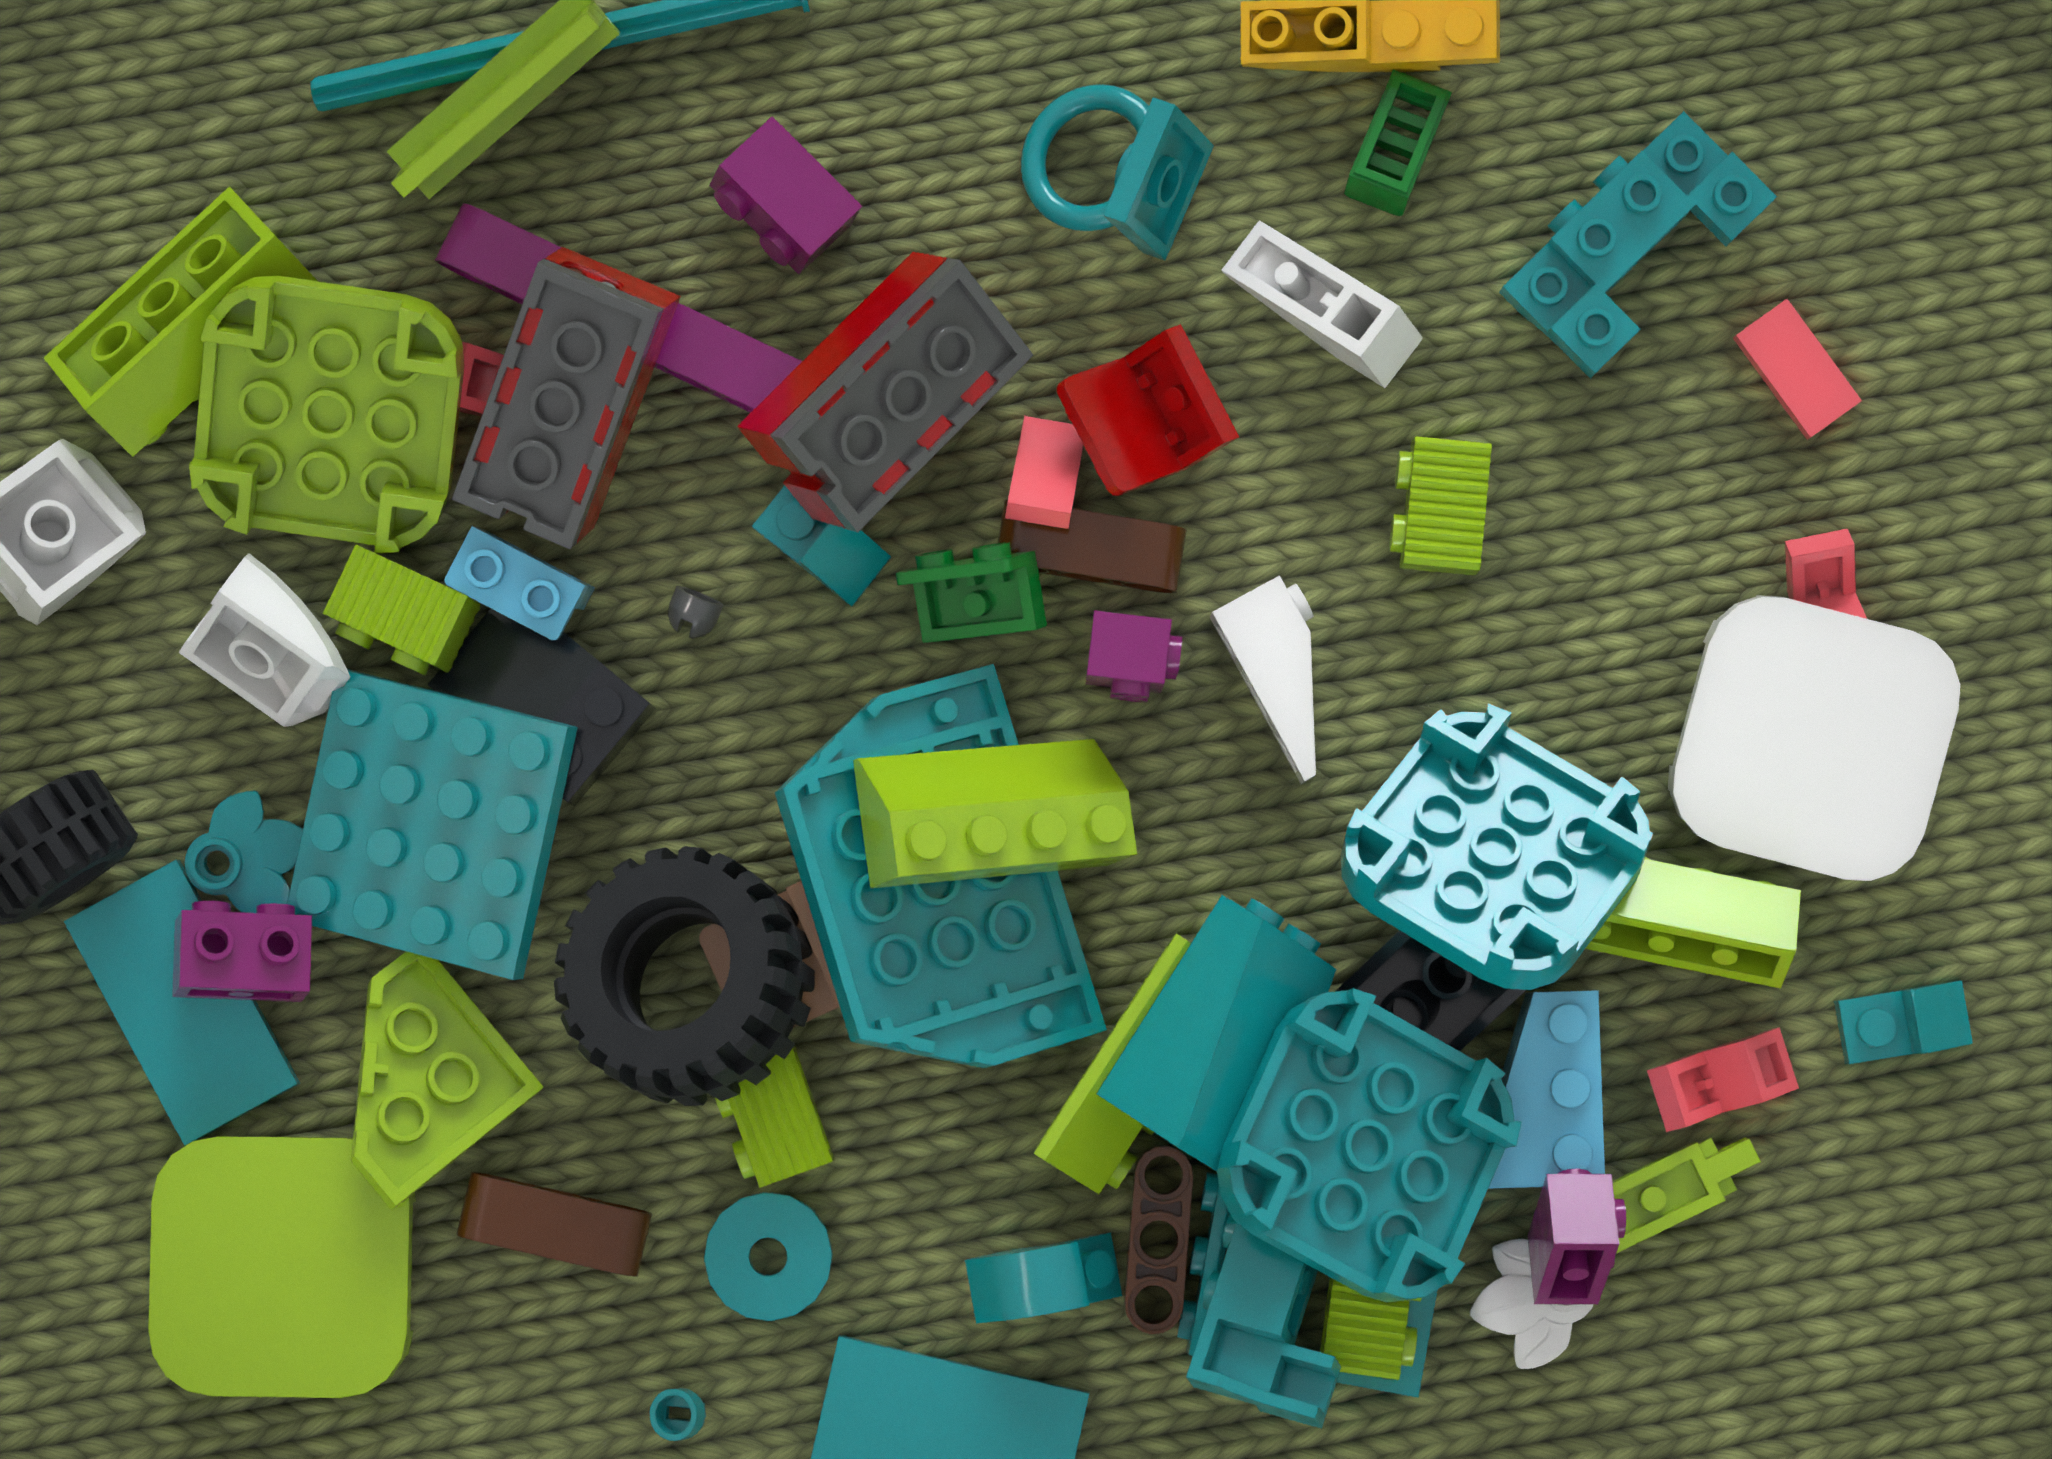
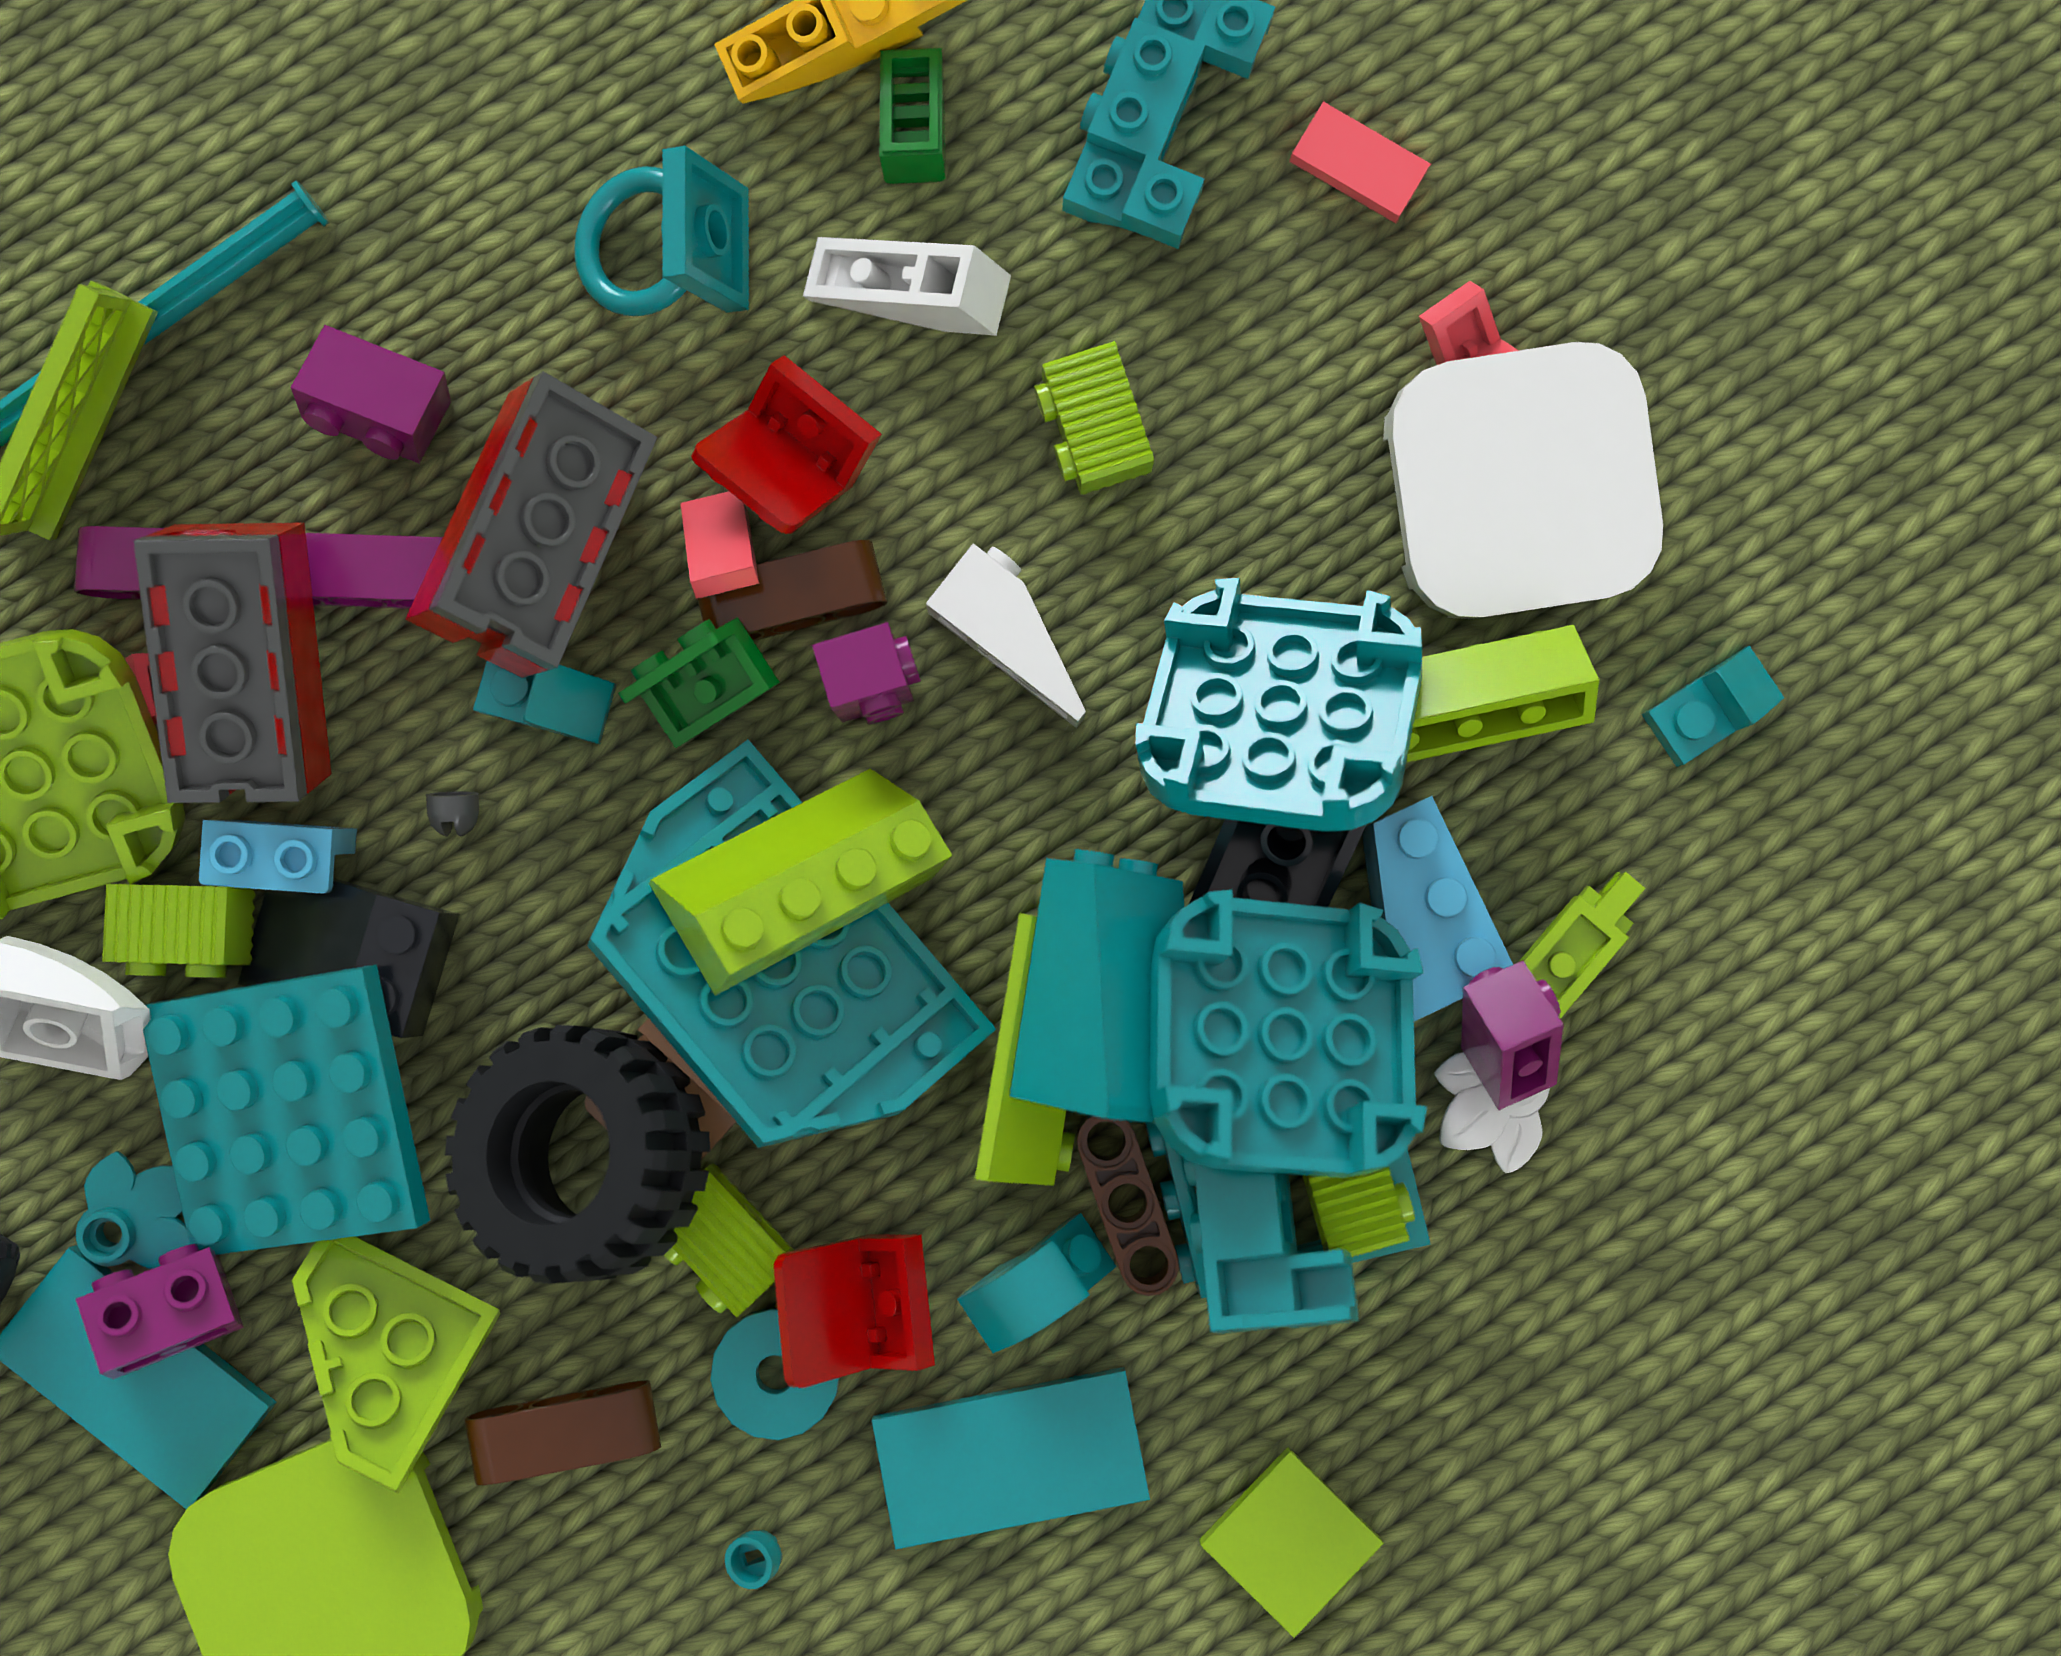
camera: 25 degrees left, 0 degrees up
(870, 1226) = (853, 1308): none -> red bracket
(1722, 1079) = (1575, 828): coral slope -> none

